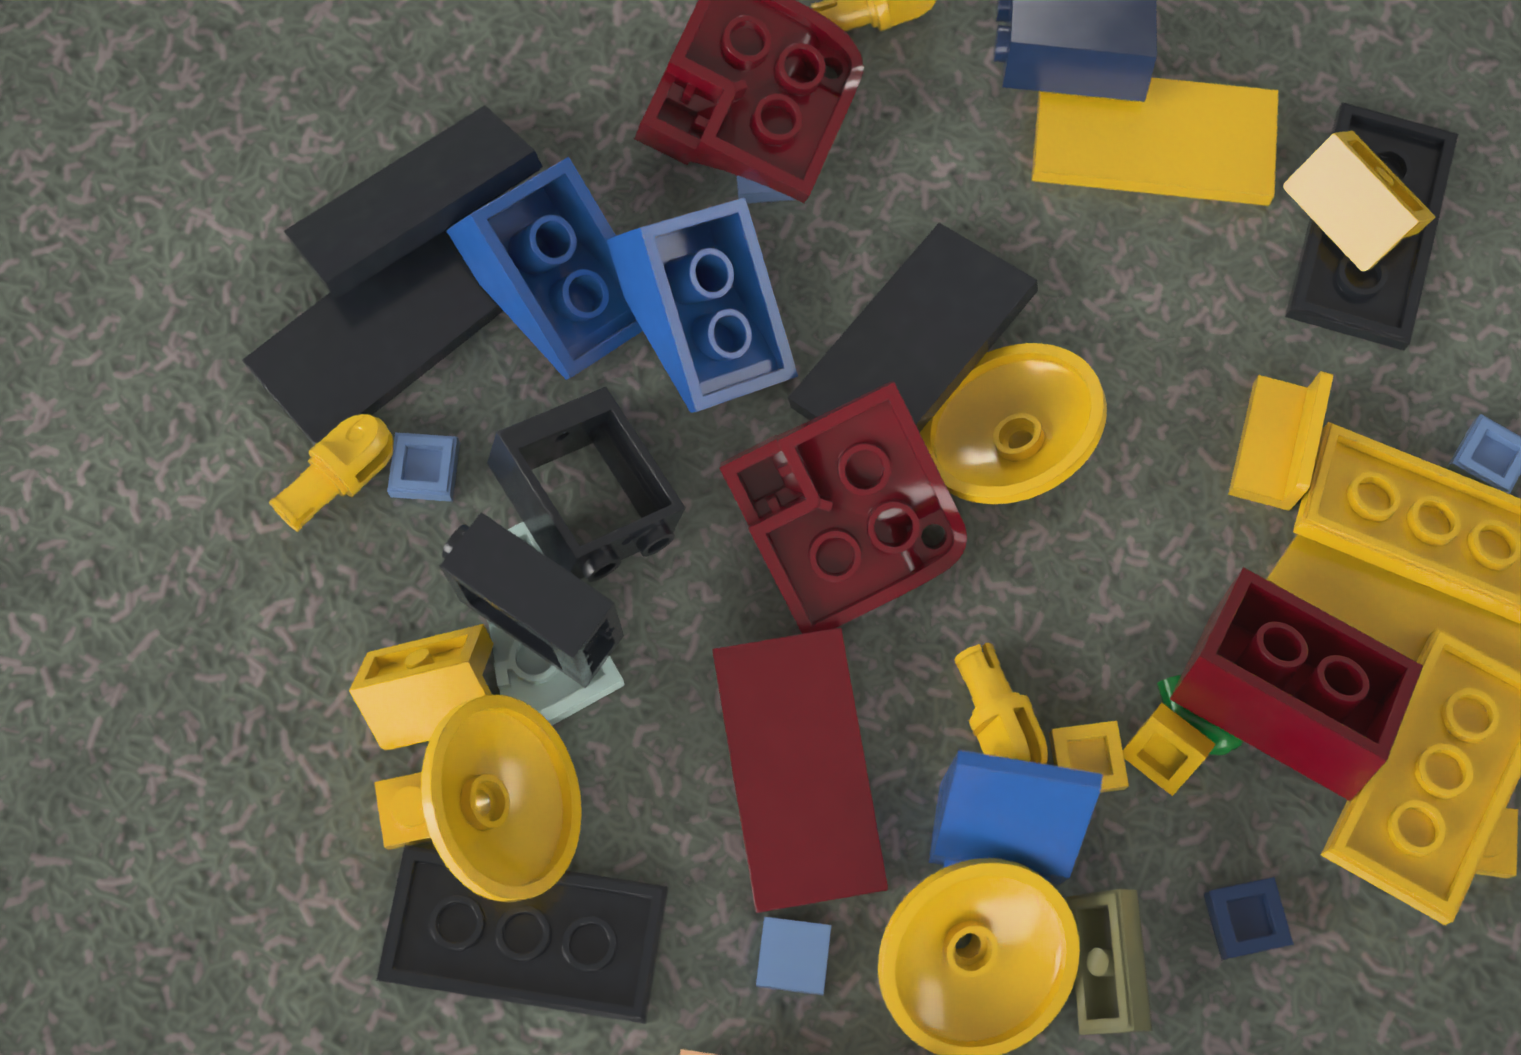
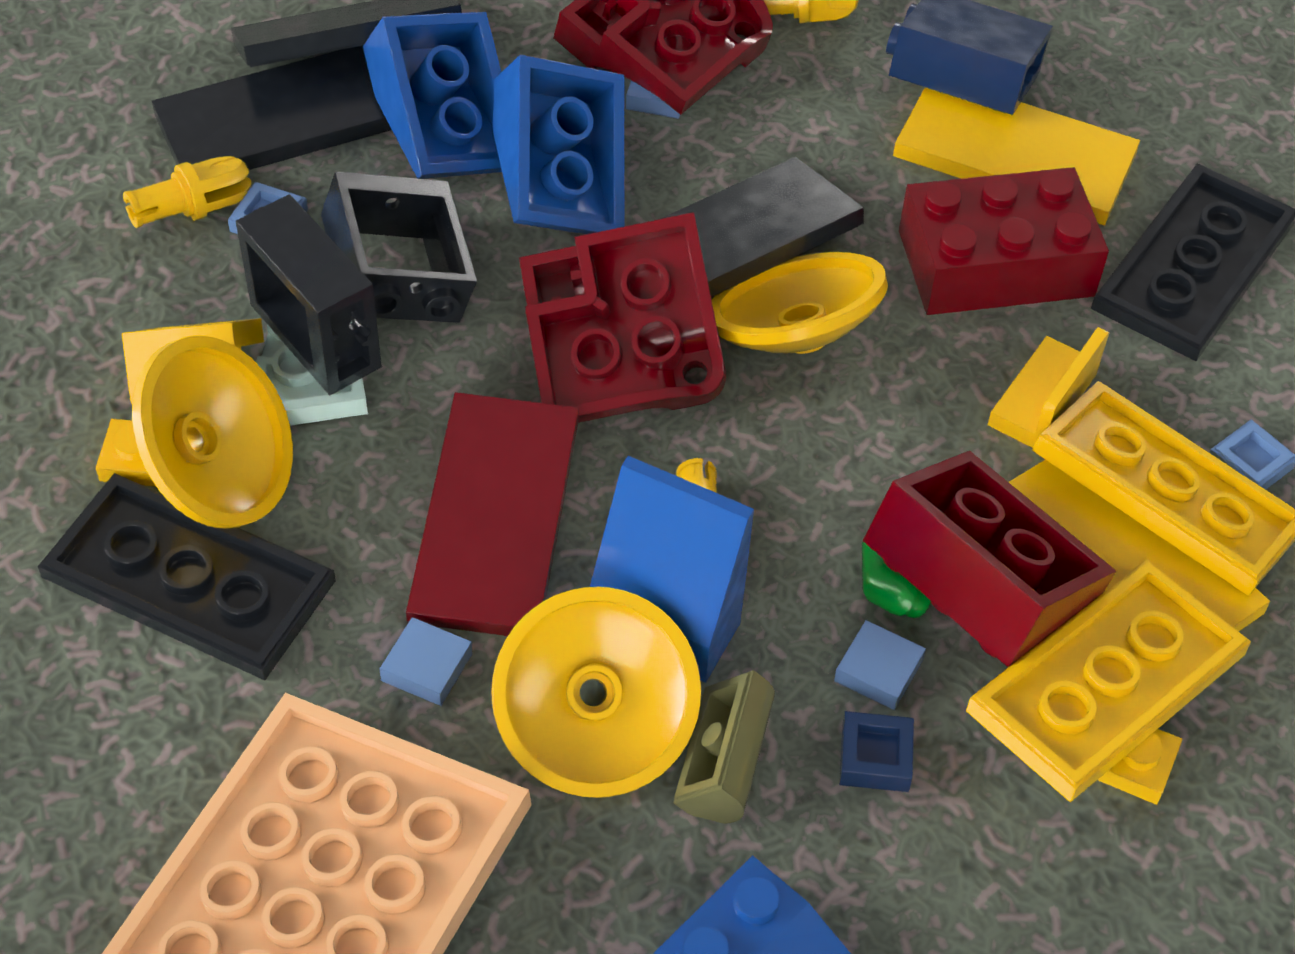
camera: 15 degrees right, 20 degrees down
(1092, 749) = (774, 580): yellow plate -> none
(1167, 749) = (848, 589): yellow plate -> none
(1184, 273) = (1002, 240): none -> dark red brick
(1217, 815) = (879, 664): none -> medium blue tile
(1357, 199) = (1181, 223): panel -> none

